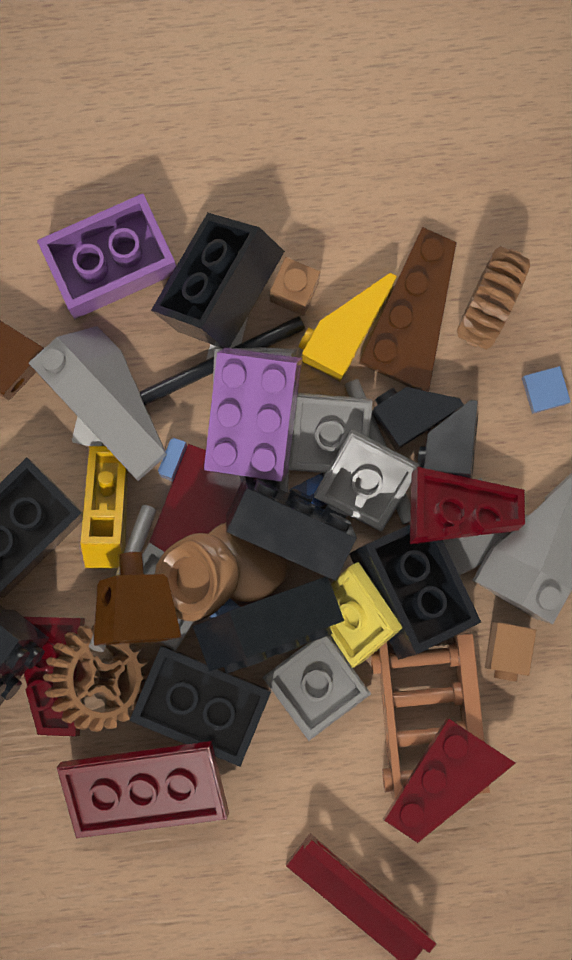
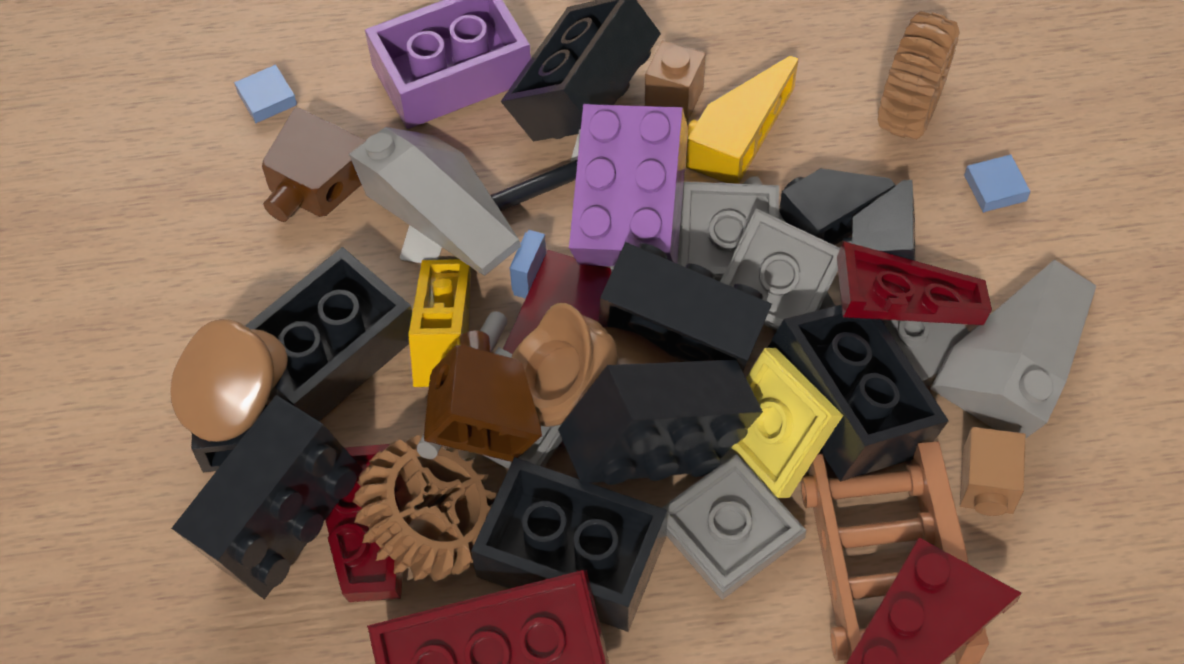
camera: 10 degrees right, 25 degrees down
(411, 322) = (821, 111): reddish brown wing -> none

